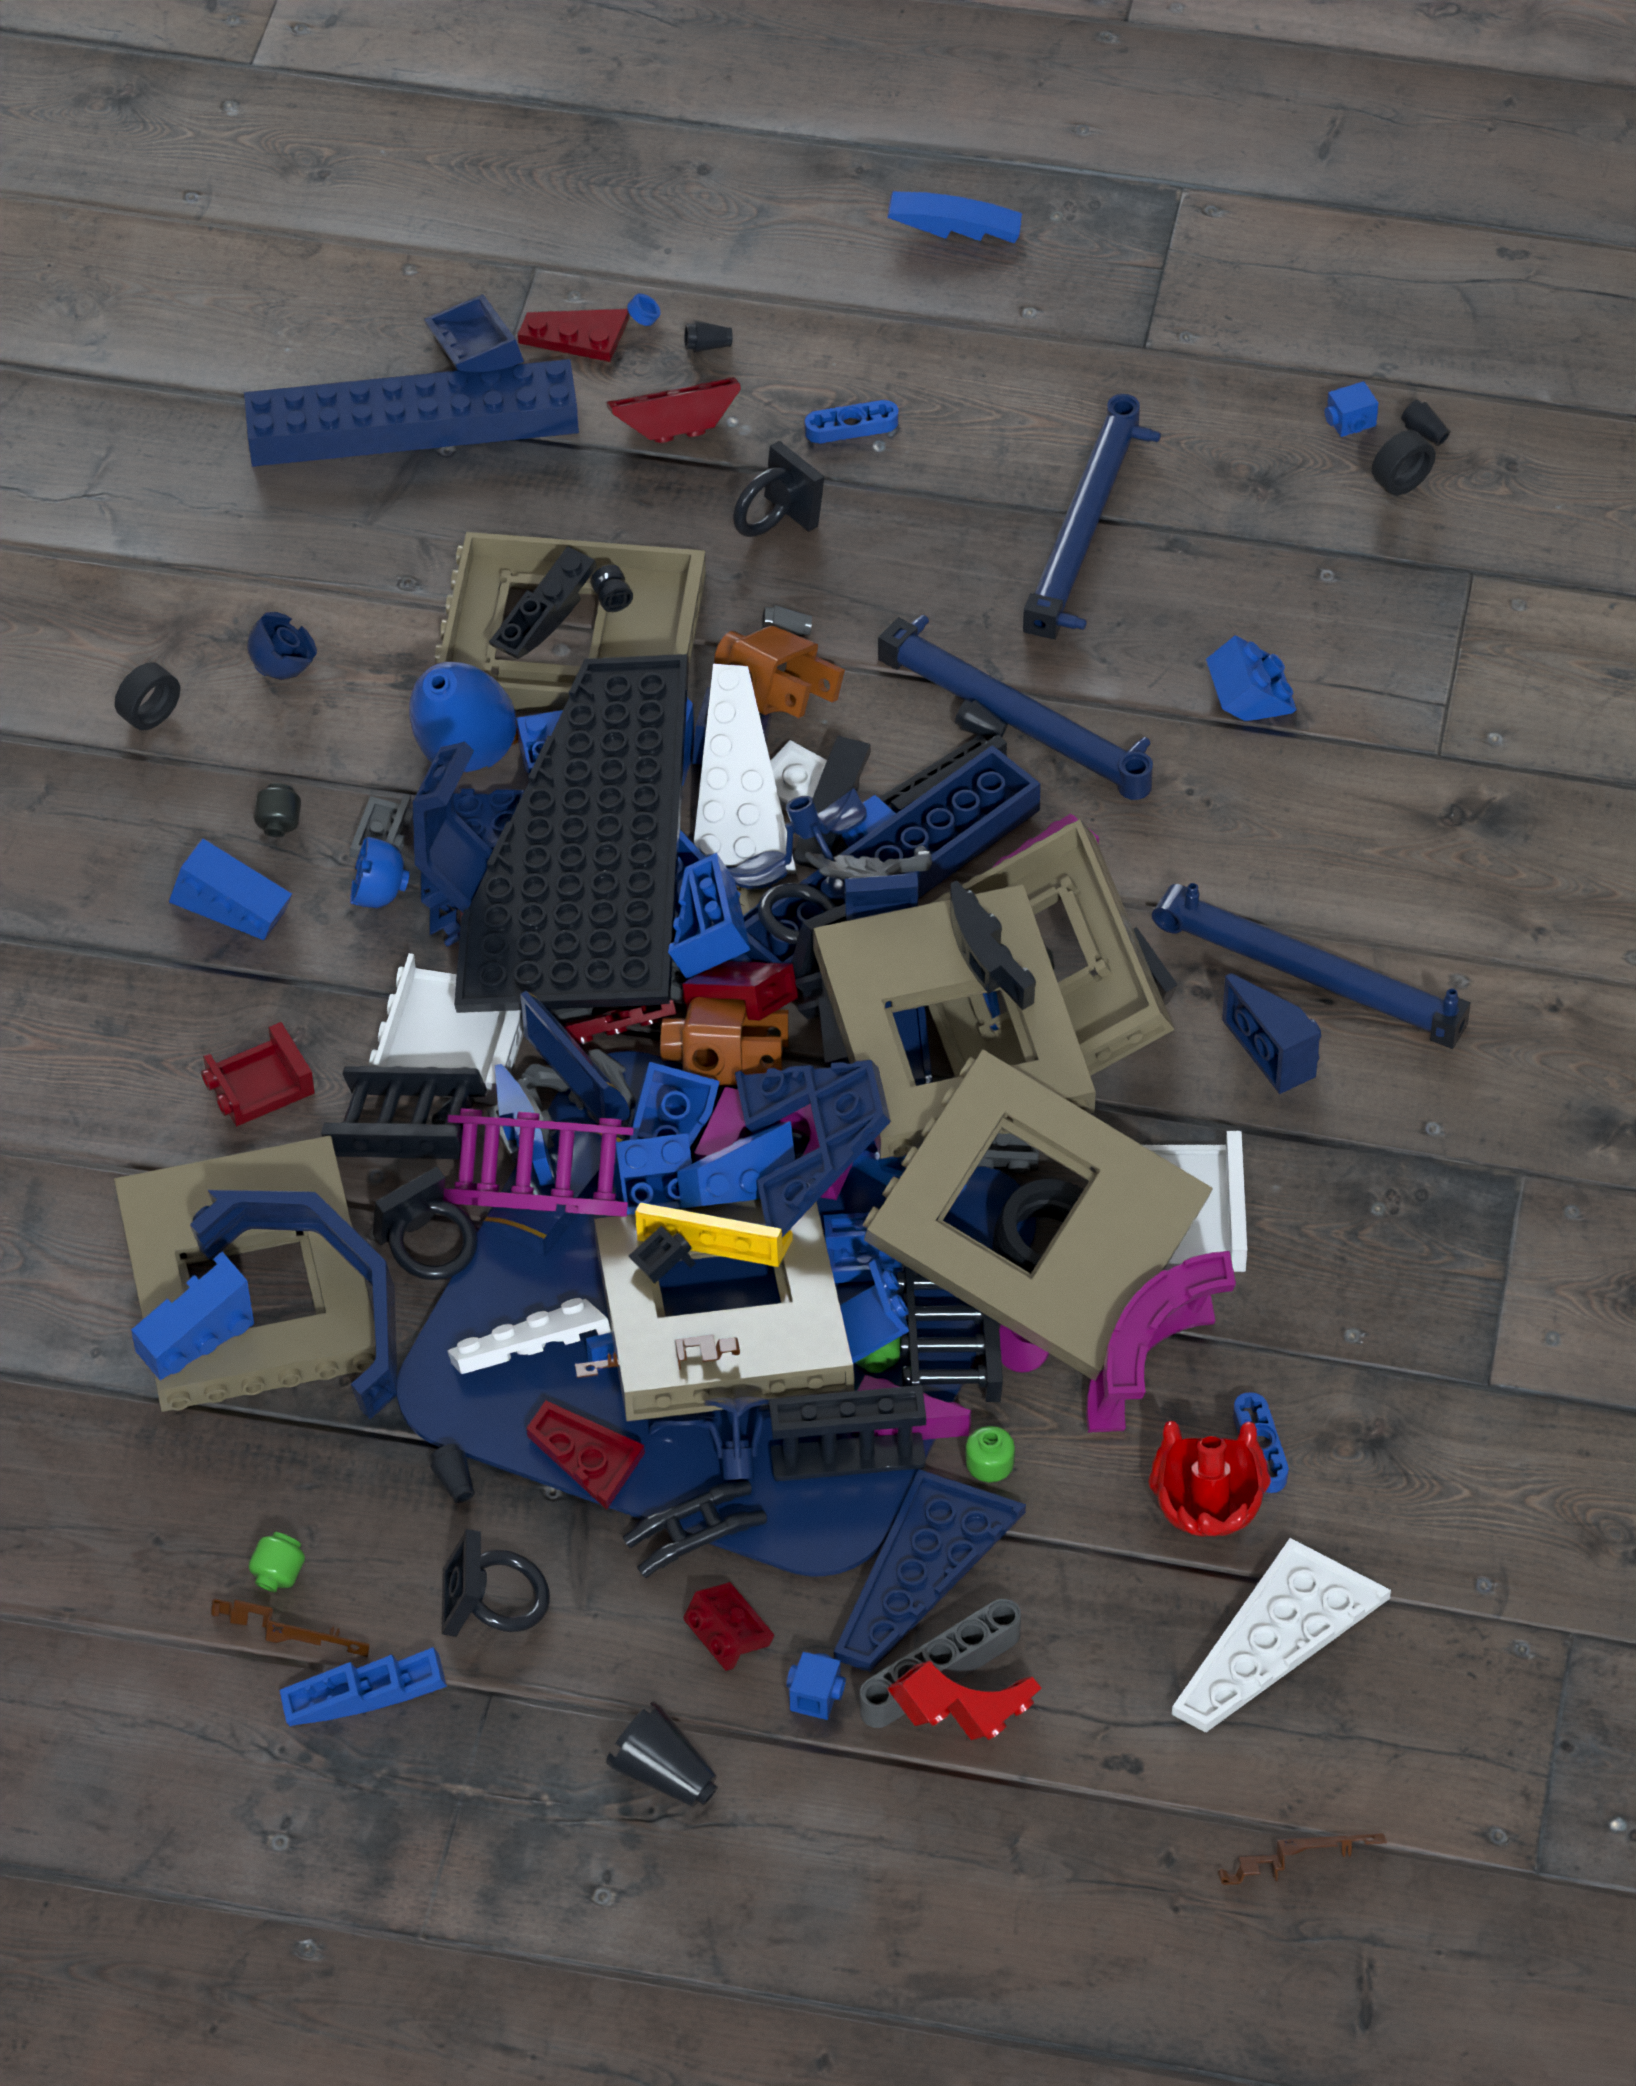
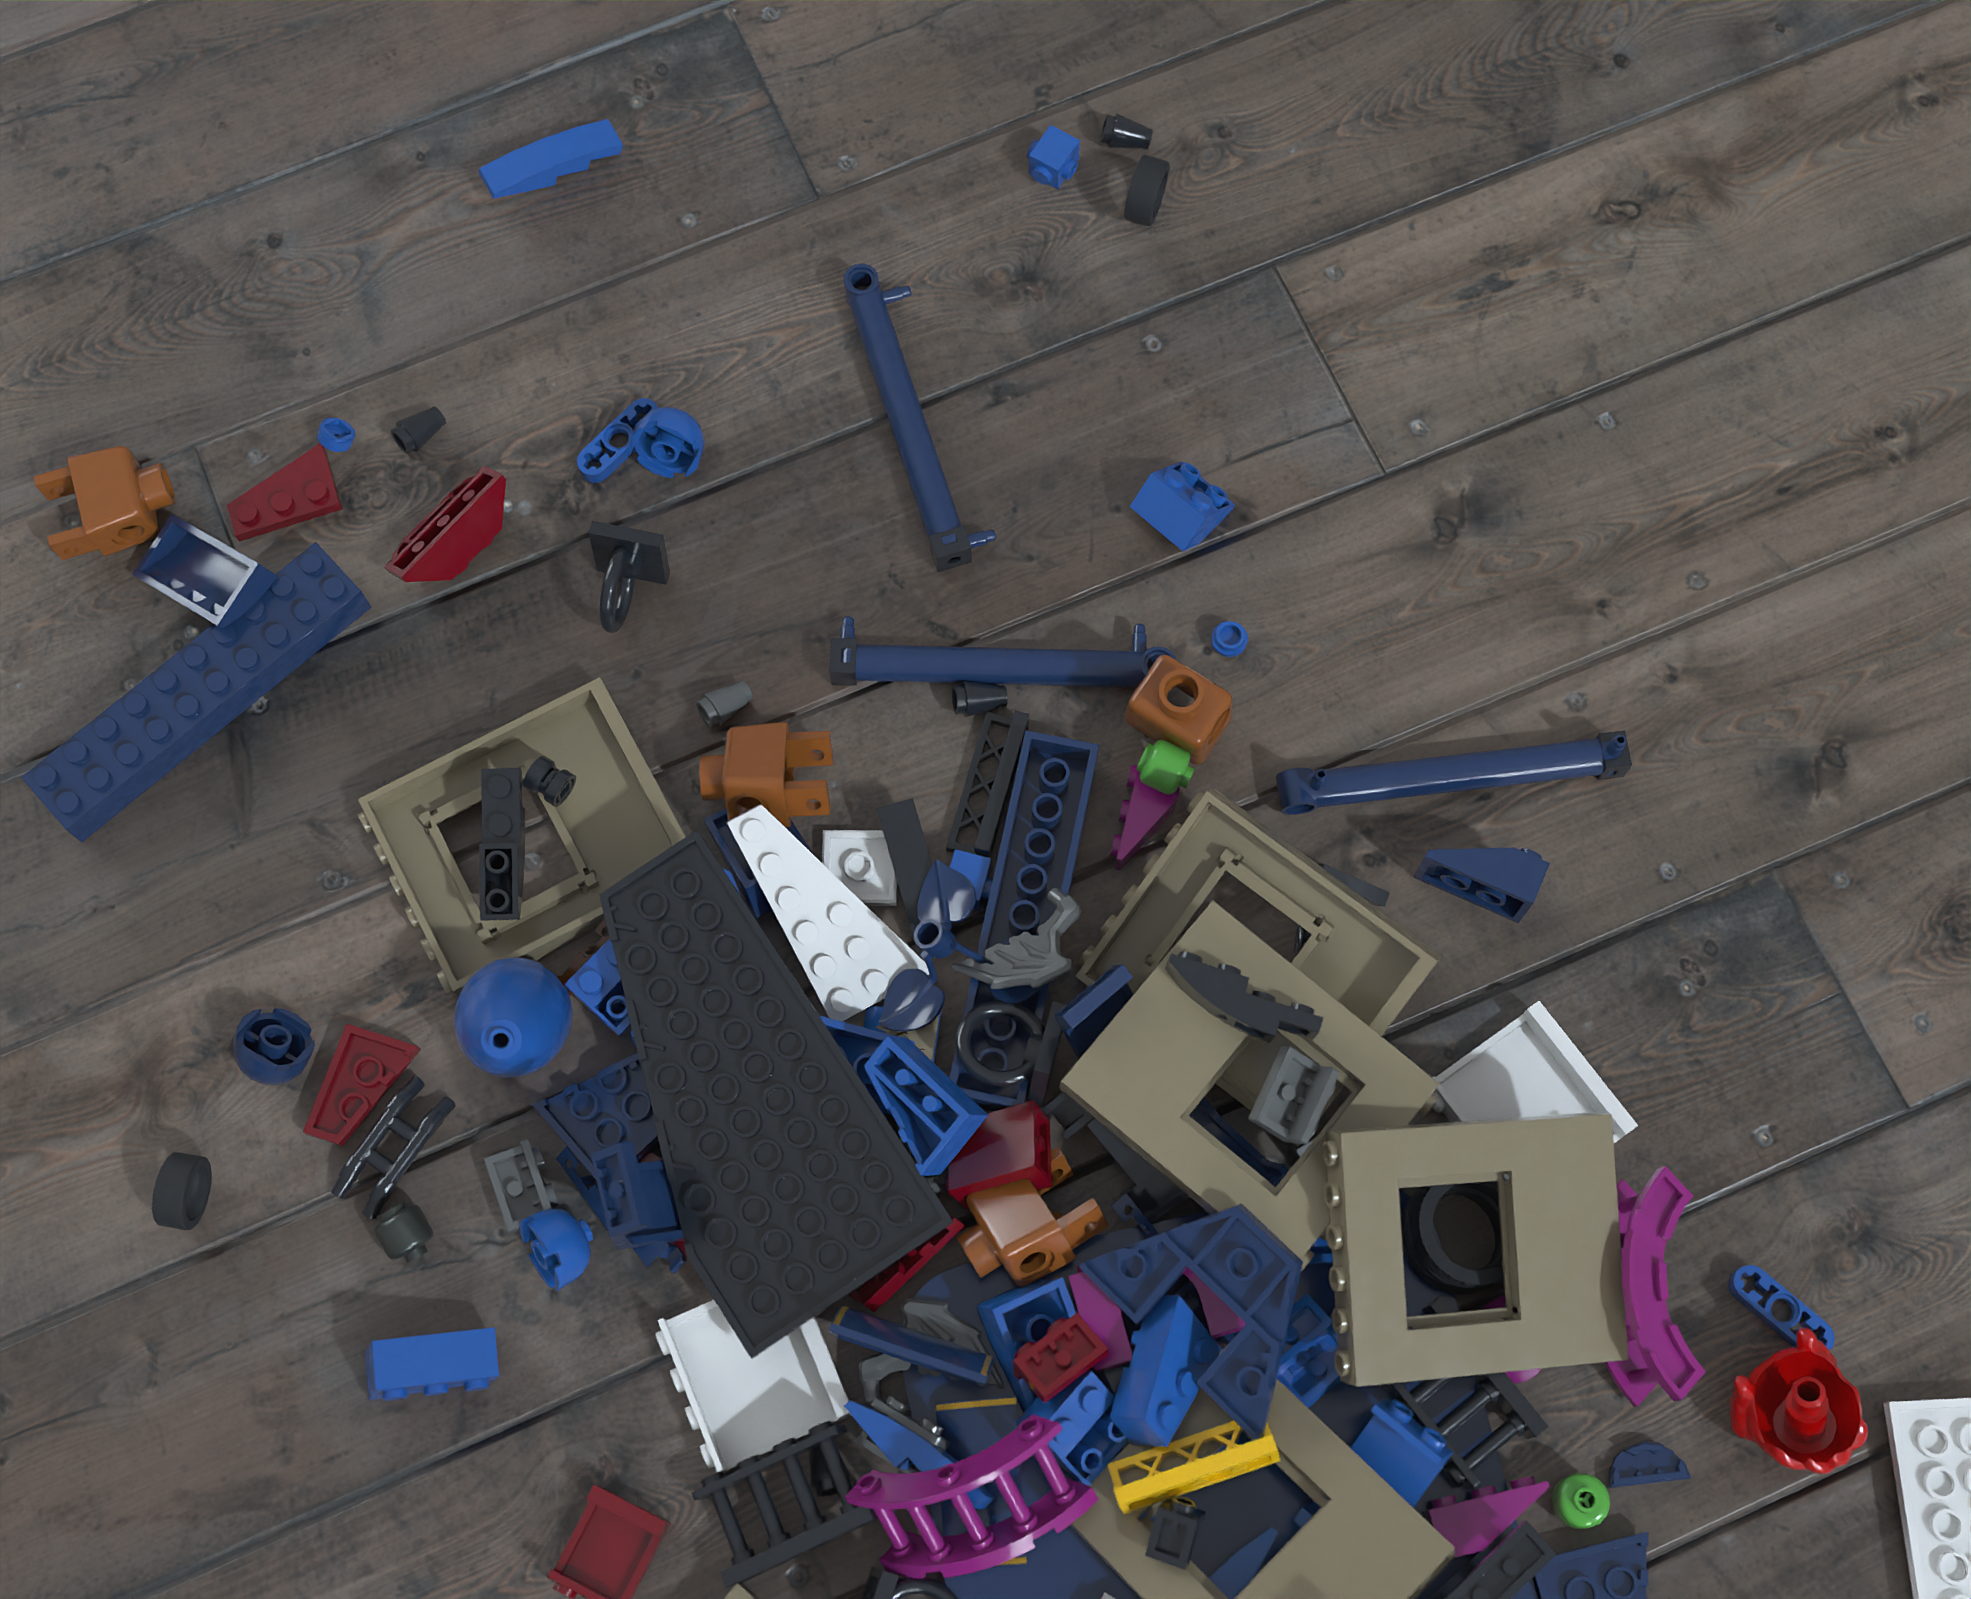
camera: 35 degrees left, 20 degrees up
(320, 706) = (356, 1081): none -> dark red wing
(326, 742) = (391, 1169): none -> black piece
(447, 262) = (113, 499): none -> dark orange piece
(672, 1112) = (1059, 1356): none -> dark red bracket
(885, 435) = (668, 442): none -> blue cylinder
(971, 1023) = (1293, 1096): none -> dark grey bracket
(1063, 1473) = (1645, 1465): none -> dark blue tile
(1076, 807) = (1165, 767): none -> bright green head
(1109, 780) = (1188, 727): none -> dark orange piece
(1212, 788) = (1229, 639): none -> blue plate

